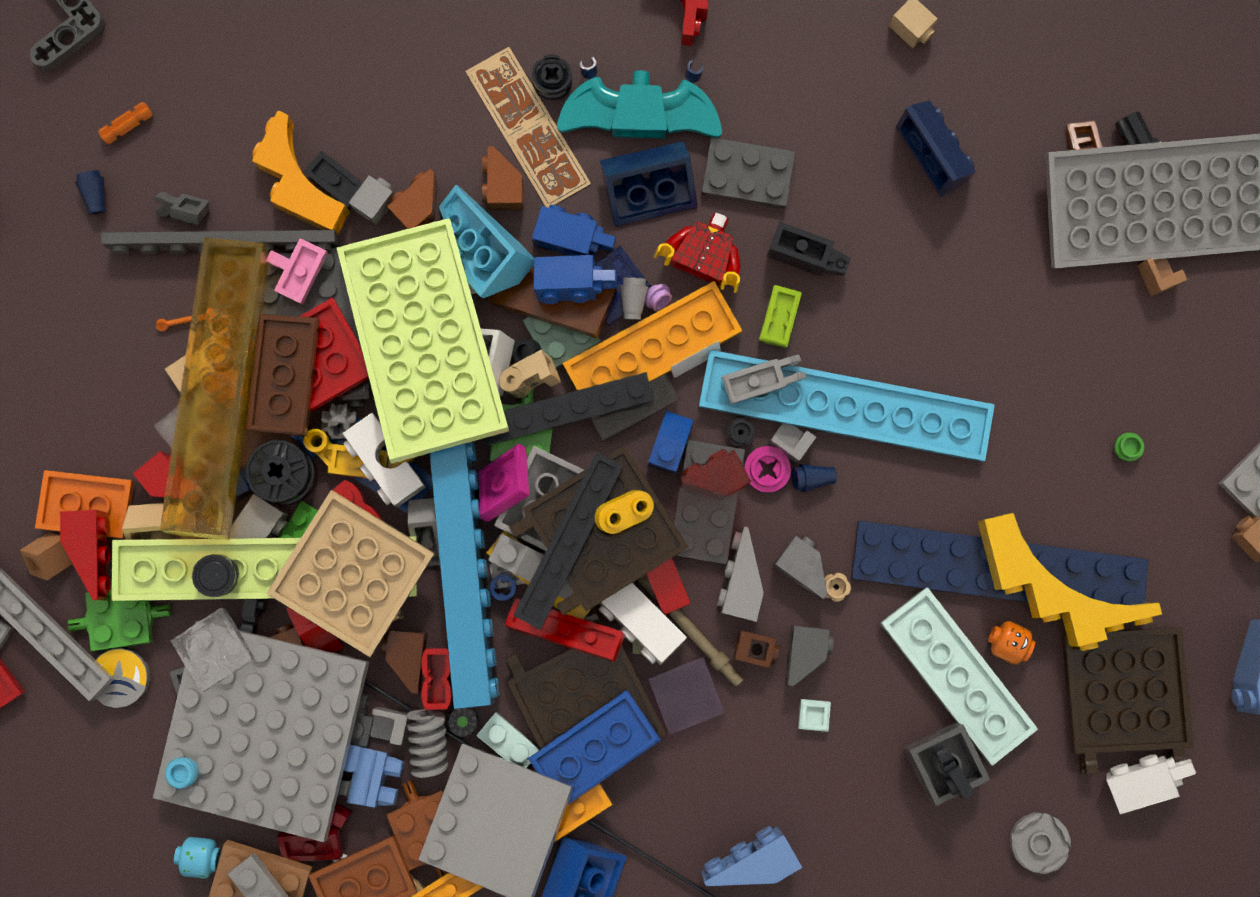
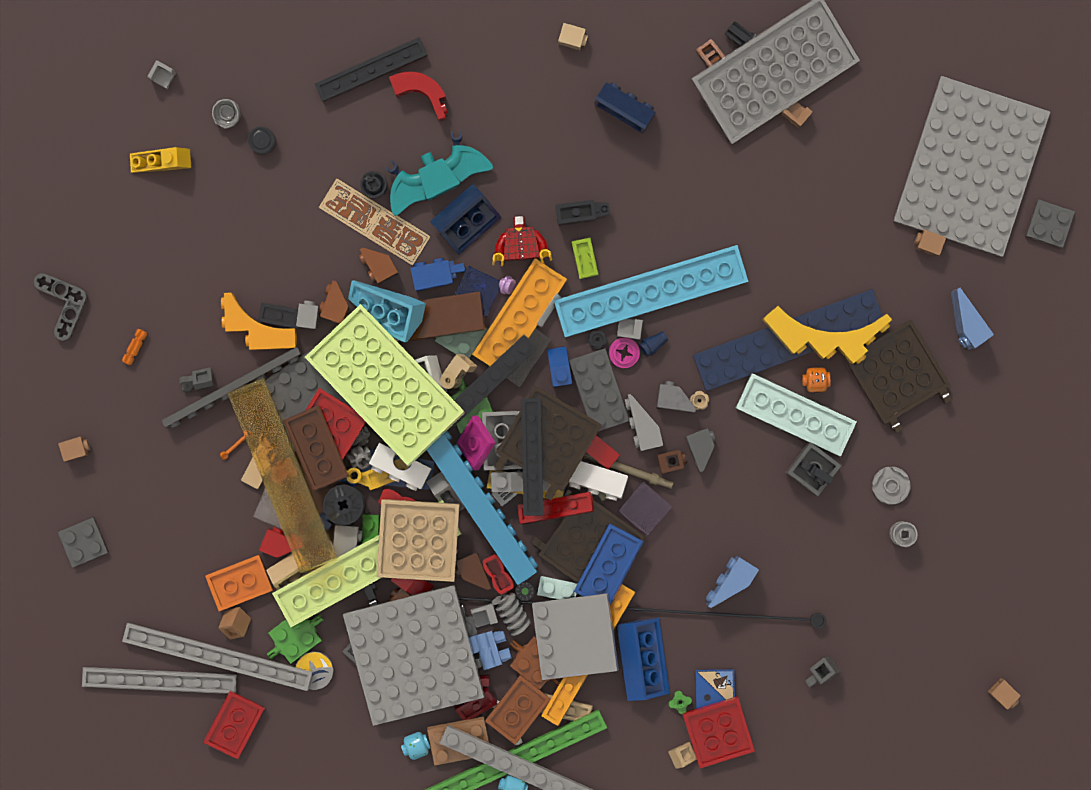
camera: 25 degrees left, 5 degrees up
(85, 543) = (254, 603): red slope -> none
(92, 191) = (138, 397): dark blue cone -> none
(181, 772) = (382, 701): medium azure tile -> none
(212, 649) = (363, 624): clear plate -> none
(215, 575) = (342, 582): black wheel -> none
(299, 270) = (290, 381): bright pink plate -> none
(502, 596) = (509, 508): blue bush -> none
(525, 348) = (445, 357): black tile -> none
(570, 279) = (451, 303): blue hinge -> none
(625, 510) = (556, 423): yellow plate -> none
(633, 297) = (492, 293): light grey cone -> none
(718, 478) = (598, 375): clear red slope -> none
(748, 173) = (520, 180): dark grey plate -> none
(760, 379) = (592, 303): light grey hinge -> none
(814, 715) = (724, 481): light aqua tile -> none
(1129, 447) = (829, 227): bright green plate -> none
(1147, 782) = (933, 419): white hinge -> none

